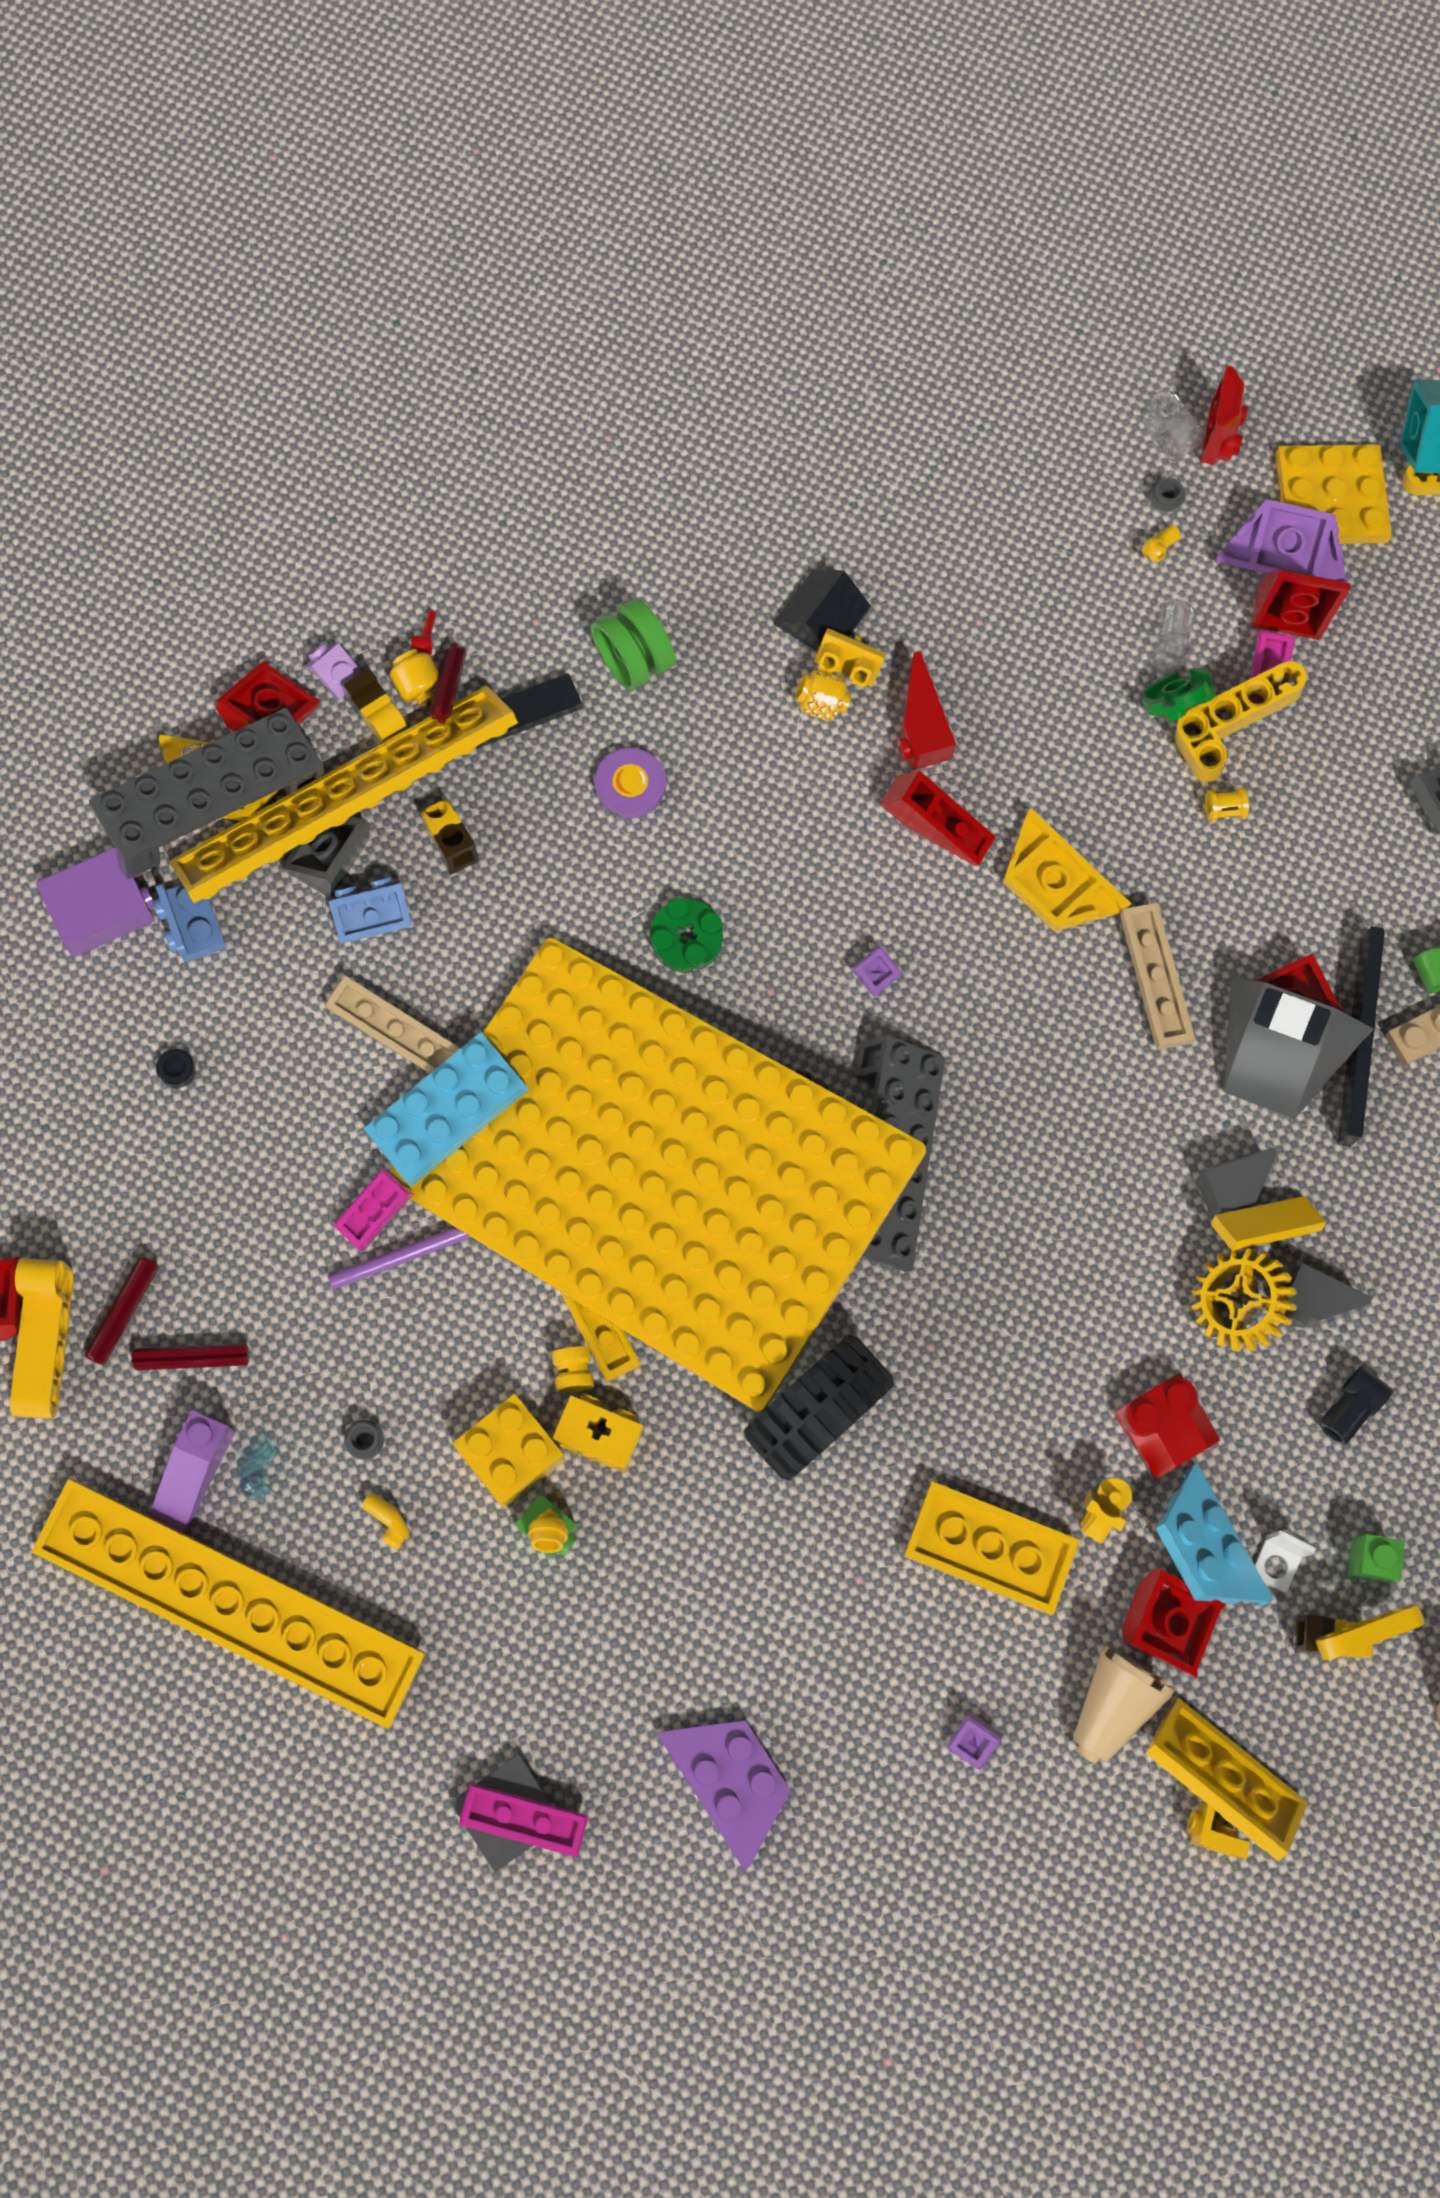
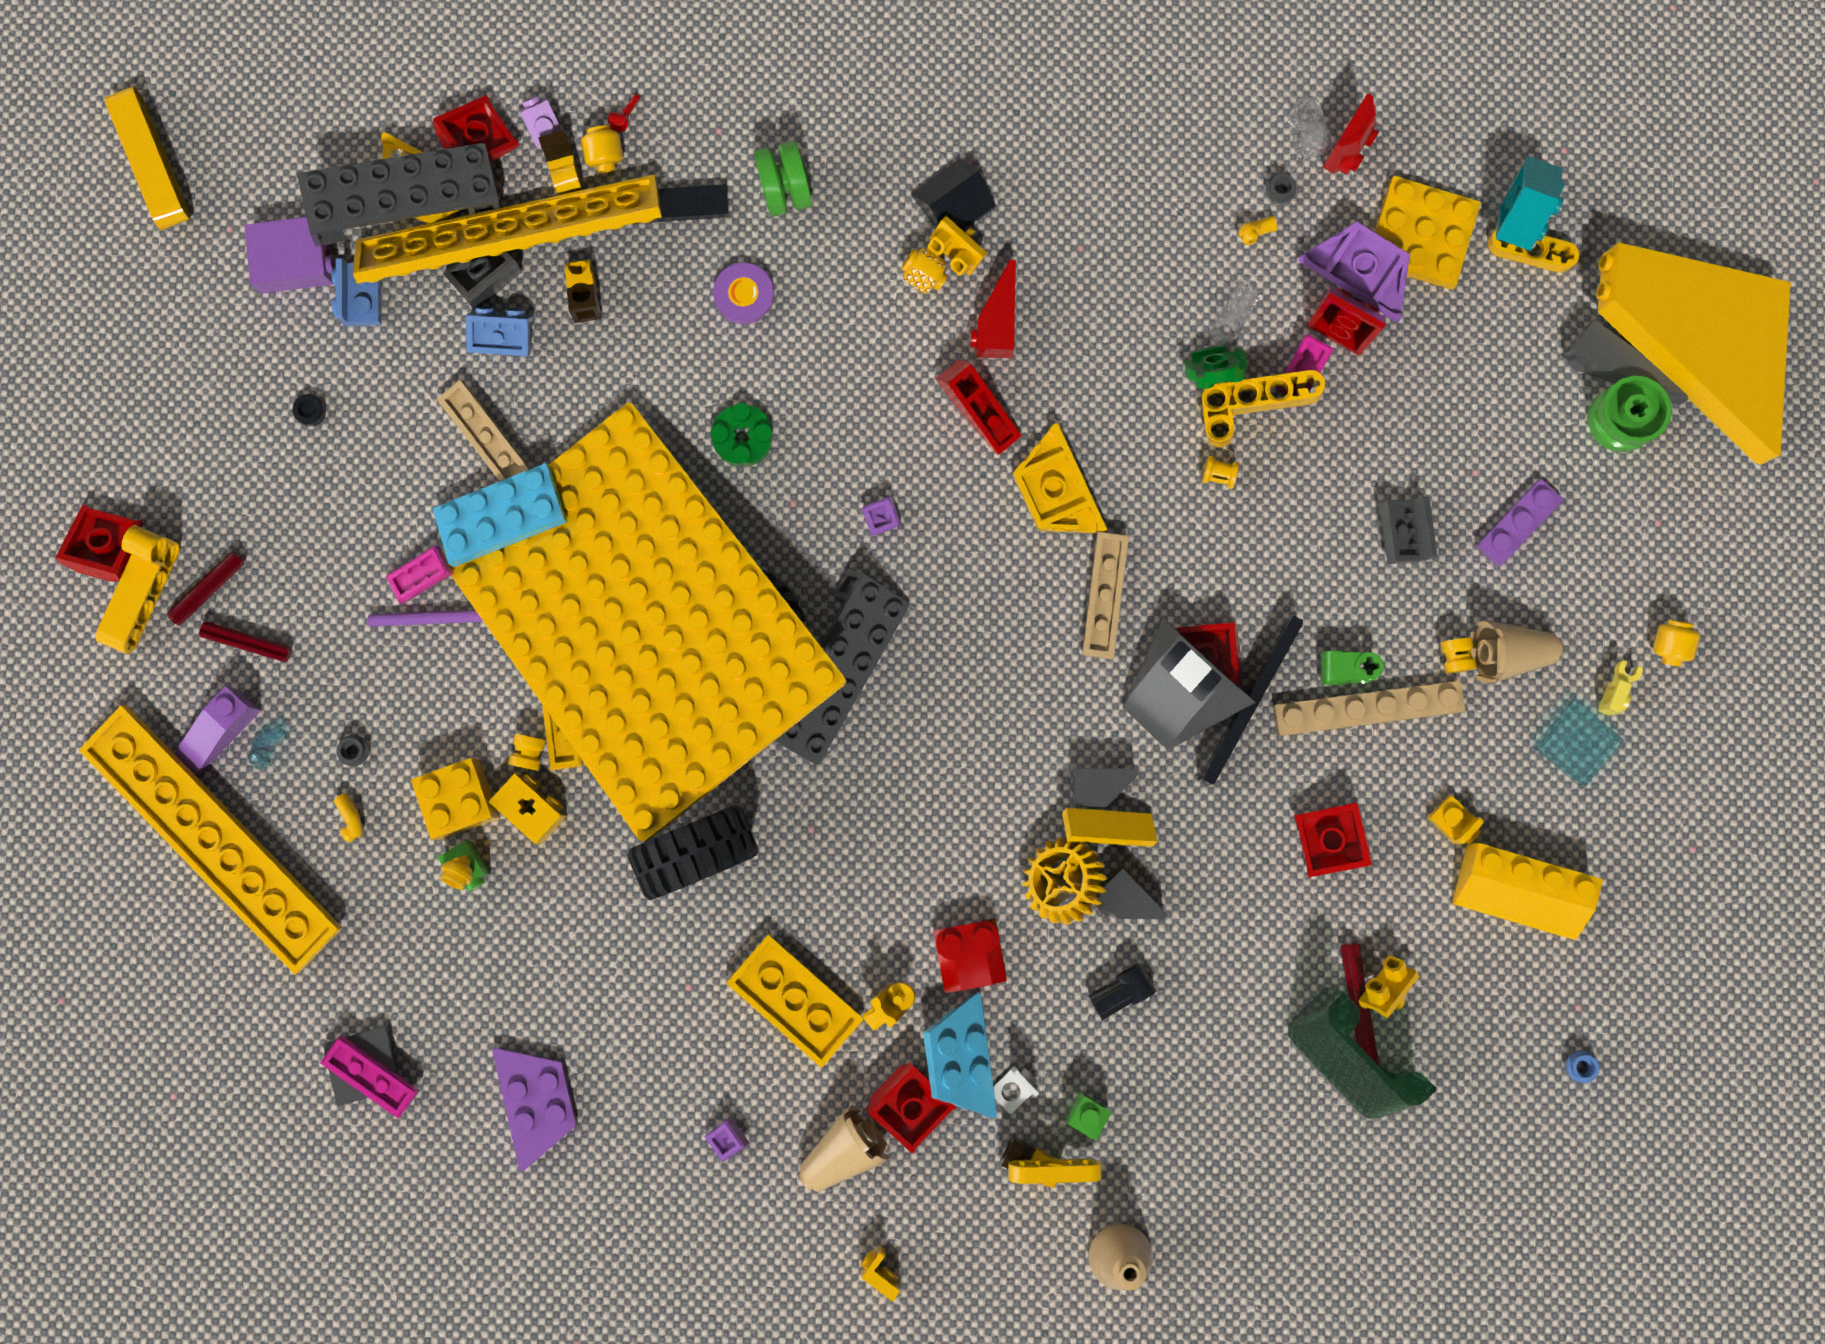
camera: 25 degrees right, 10 degrees up
(448, 683) = (623, 162): dark red axle -> none
(1227, 1779) = (903, 1238): yellow plate -> none

